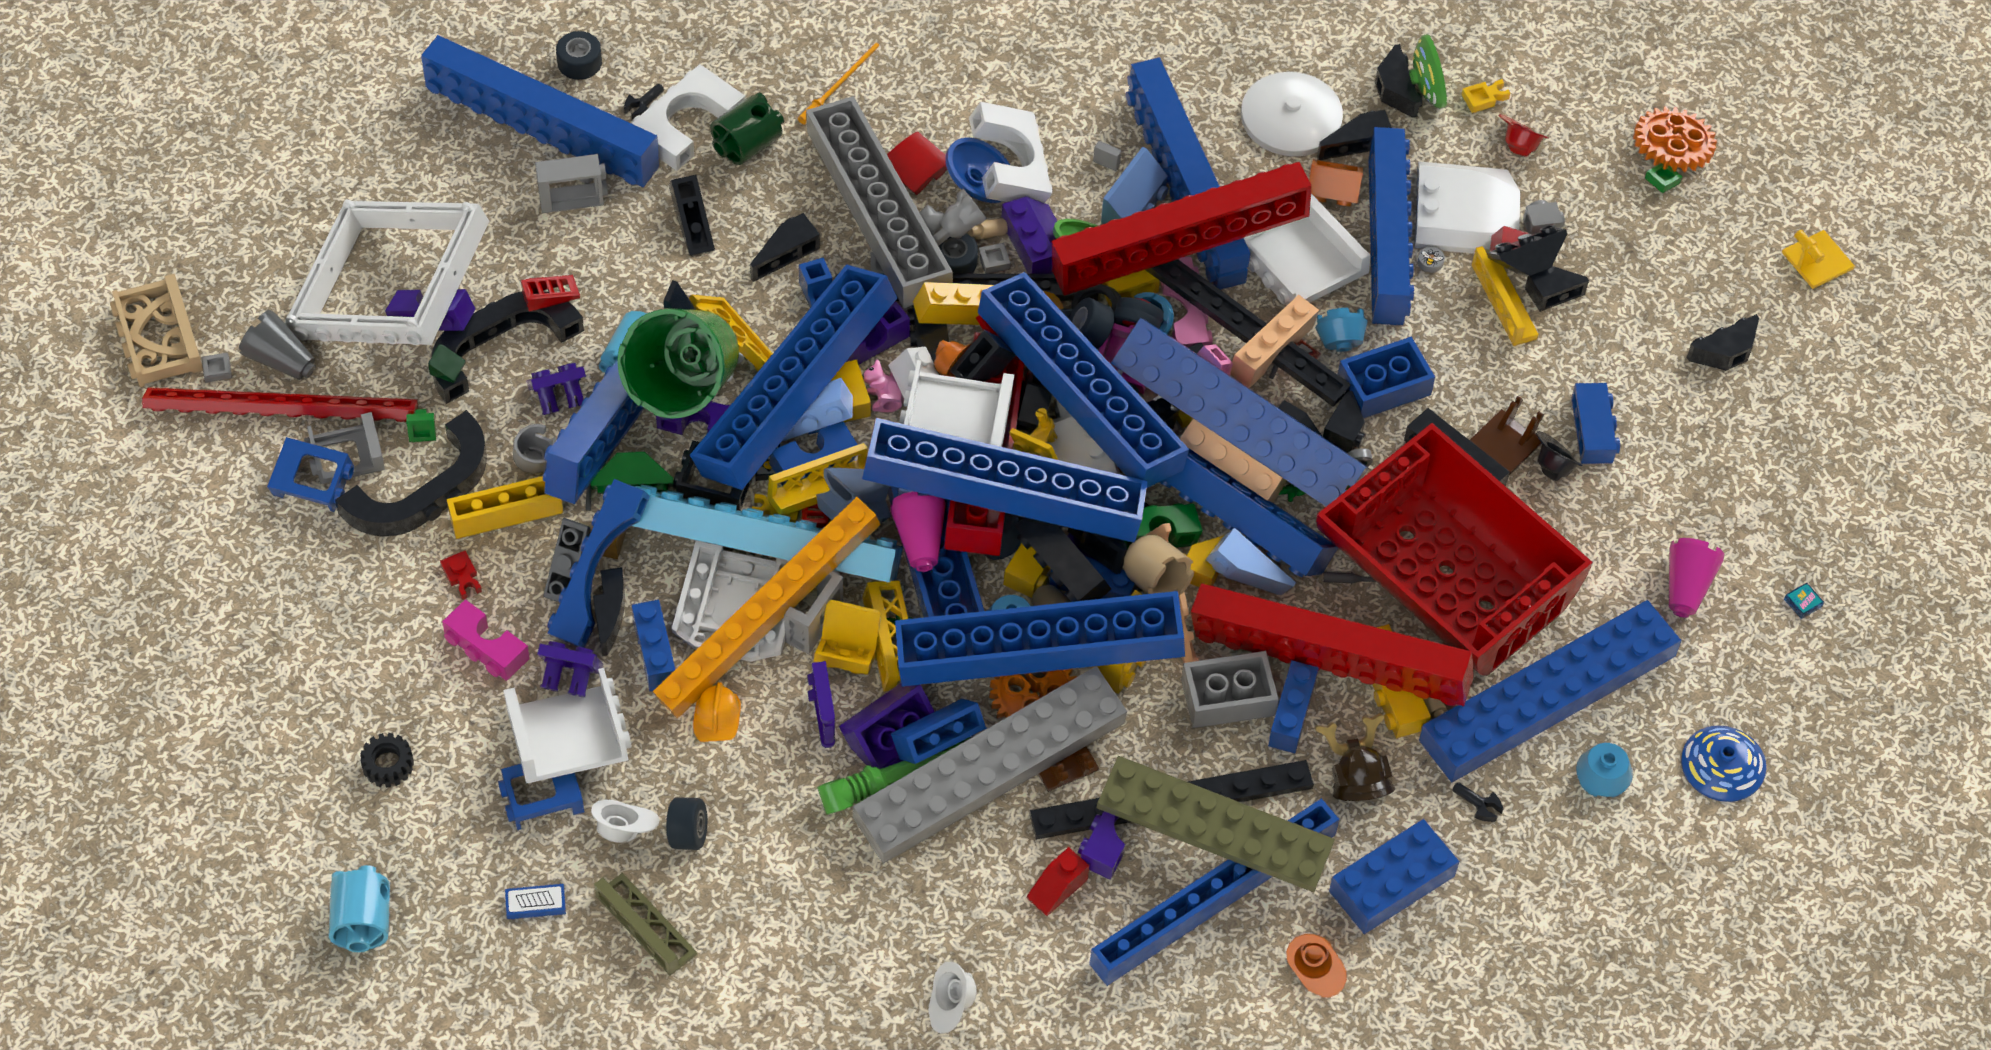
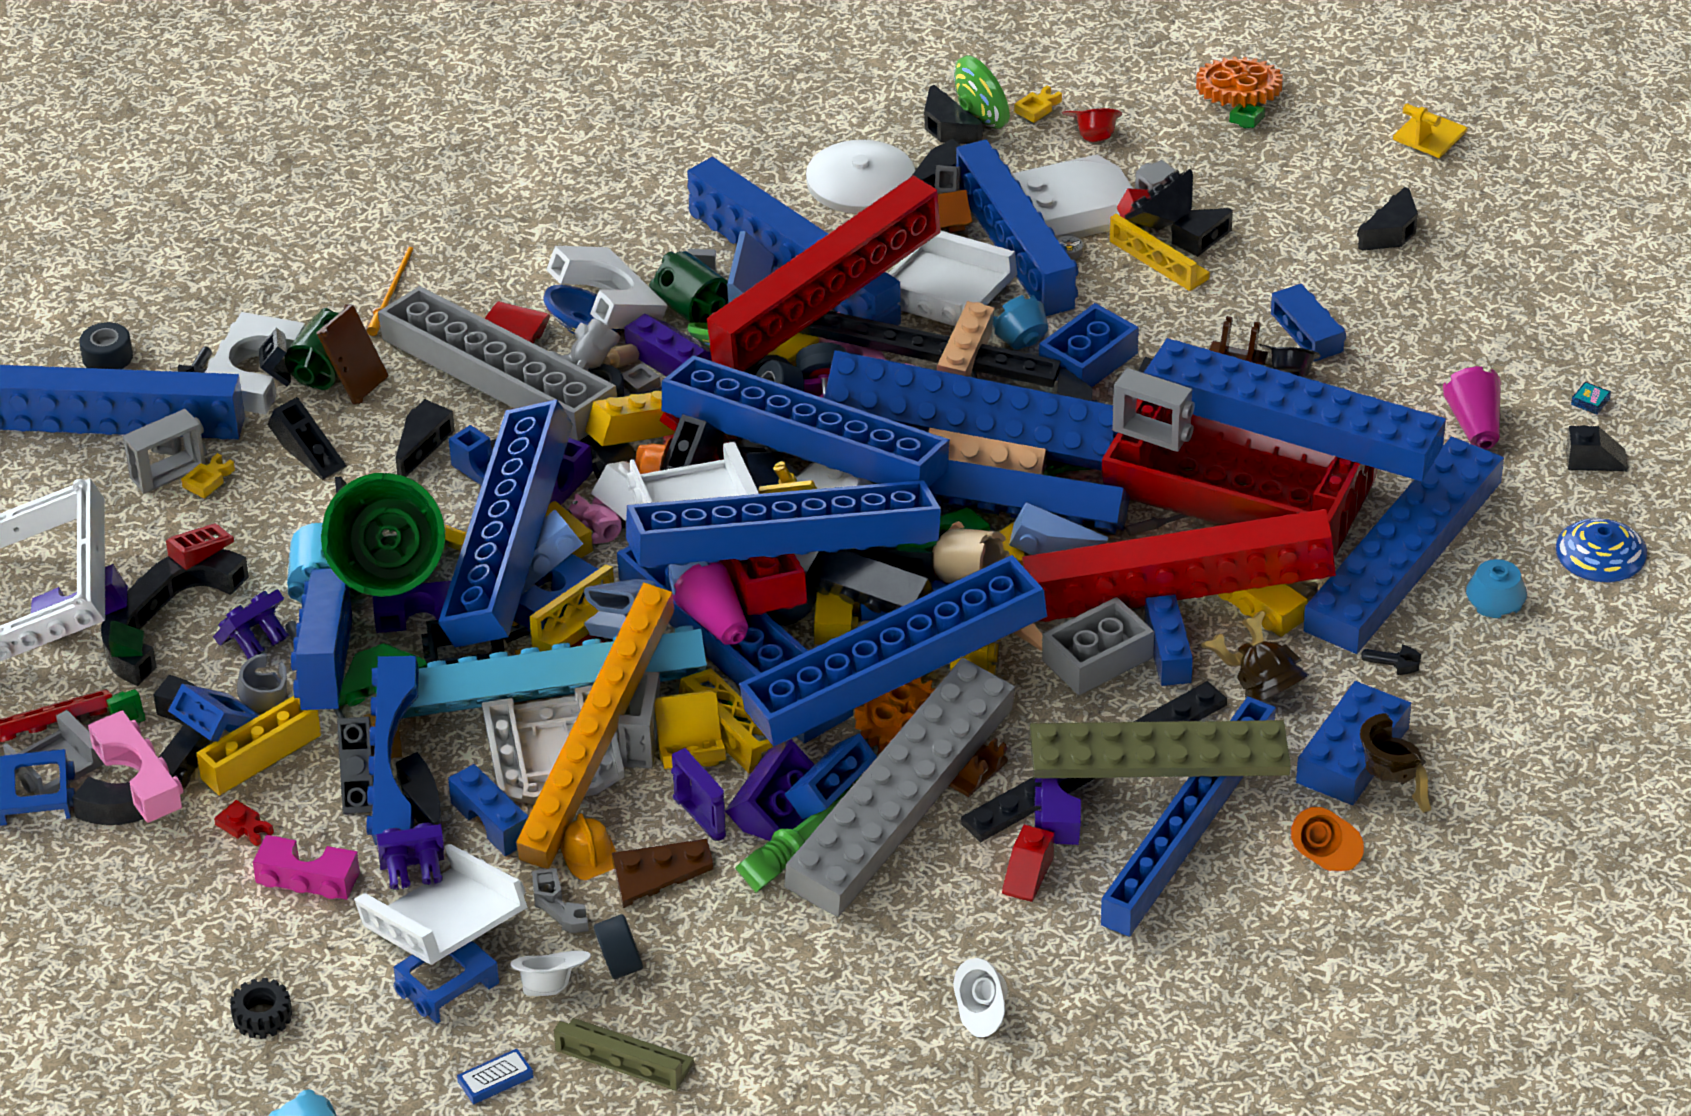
camera: 20 degrees left, 15 degrees down
(394, 520) = (121, 743): none -> bright pink arch
(469, 468) = (210, 711): none -> blue window
(596, 219) = (208, 478): none -> yellow plate
(666, 770) = (549, 898): none -> light grey piece
(699, 124) = (271, 357): none -> black panel
(760, 755) = (654, 868): none -> reddish brown wing
(764, 141) = (353, 350): none -> reddish brown door
(1078, 182) = (689, 286): none -> dark green cylinder
(1358, 151) = (947, 178): none -> dark grey slope
(1378, 487) = (1158, 391): none -> light grey window
(1409, 913) = (1393, 758): none -> dark brown helmet
(1506, 533) = (1303, 410): none -> blue brick
(1773, 660) = (1594, 450): none -> black slope

